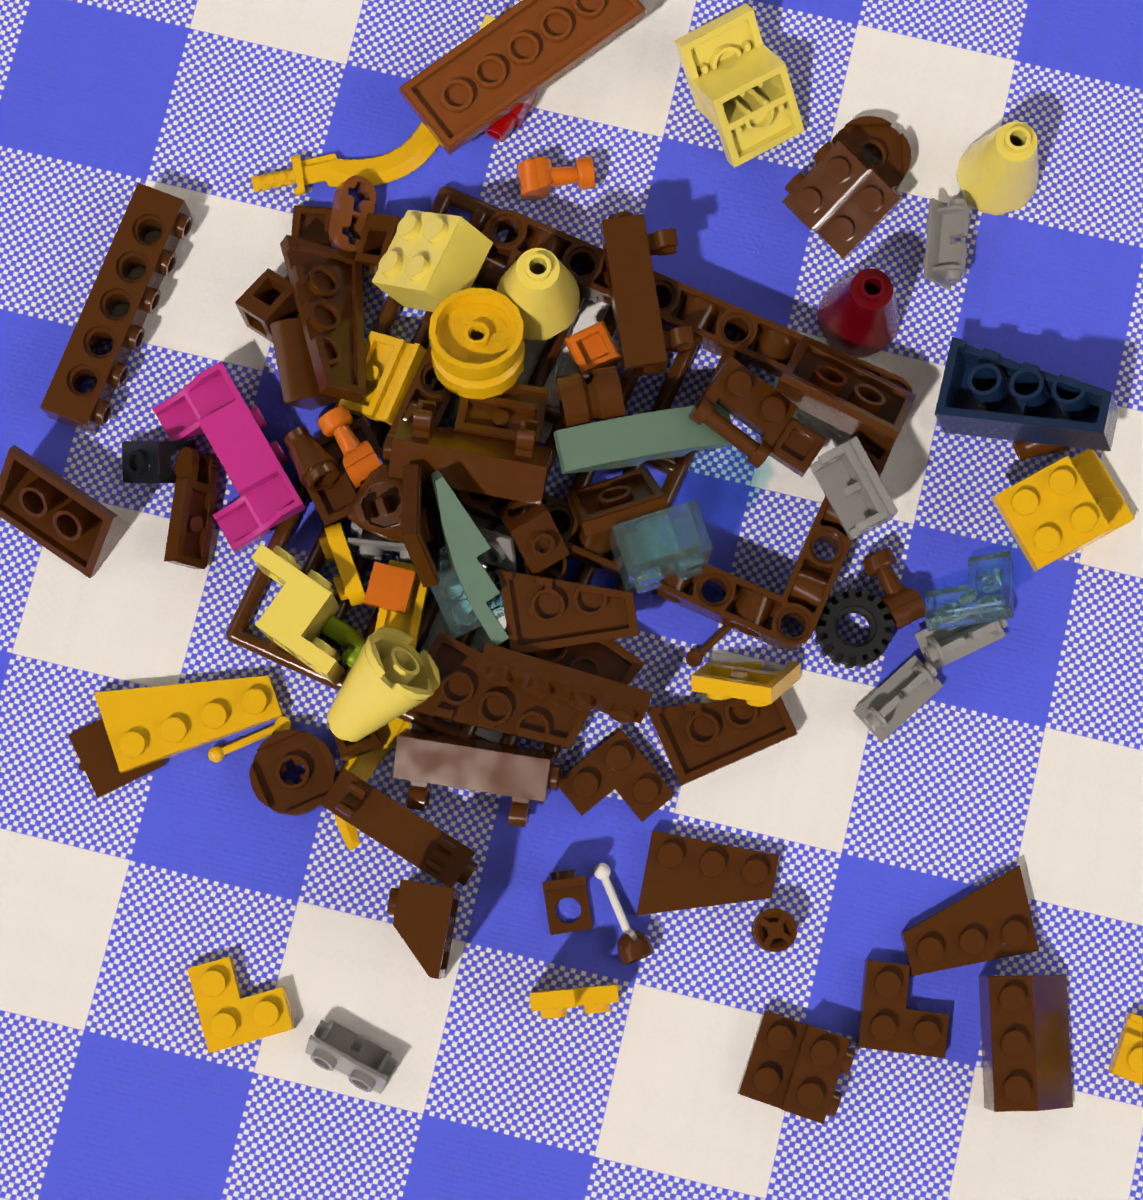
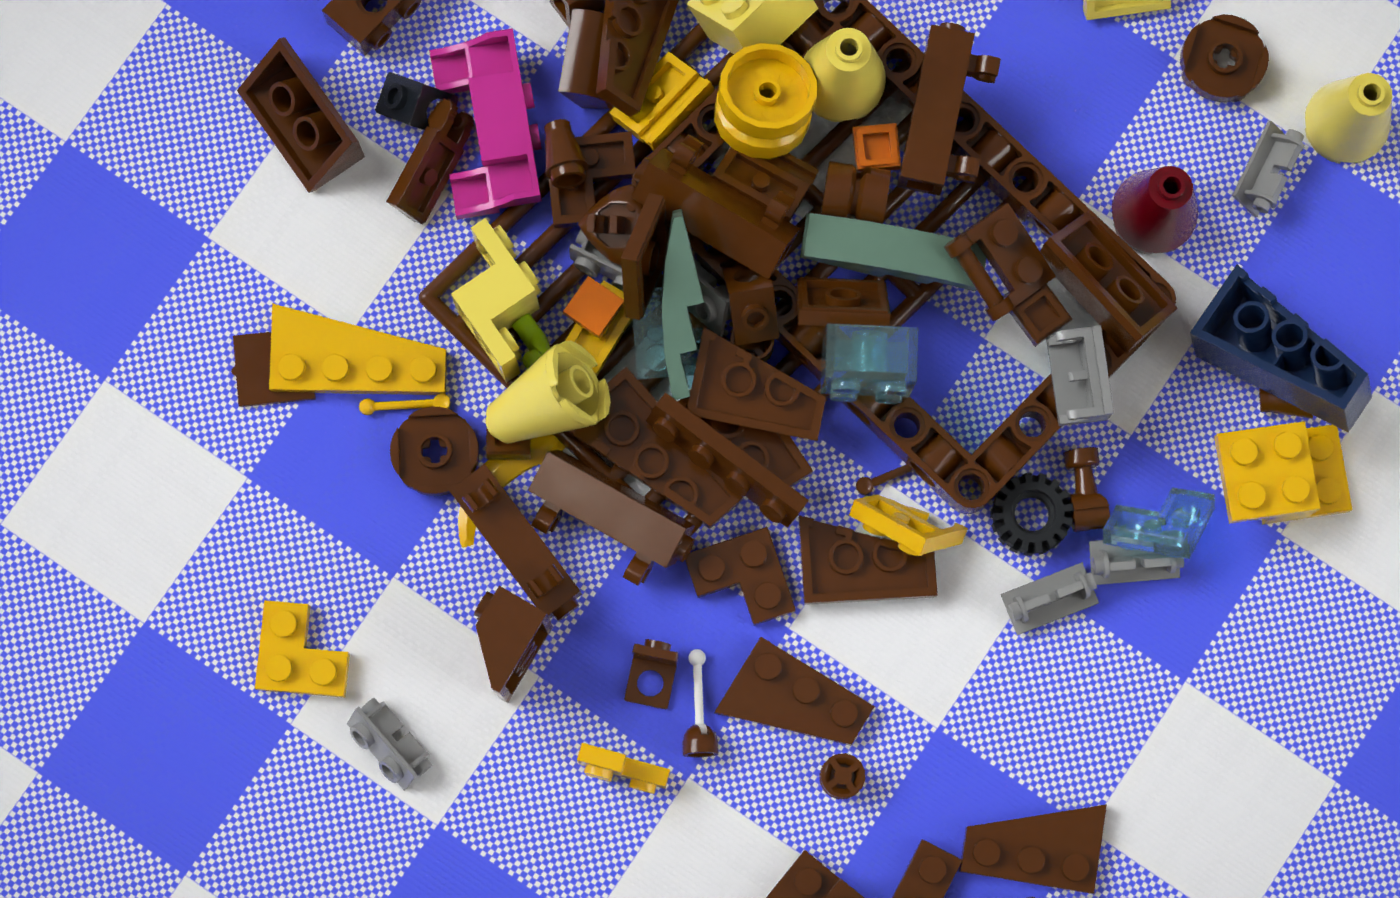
camera: 20 degrees right, 0 degrees up
(337, 548) = (556, 250): yellow plate -> none
(358, 457) = (610, 170): orange leg -> none
(841, 197) = (1180, 87): reddish brown plate -> none

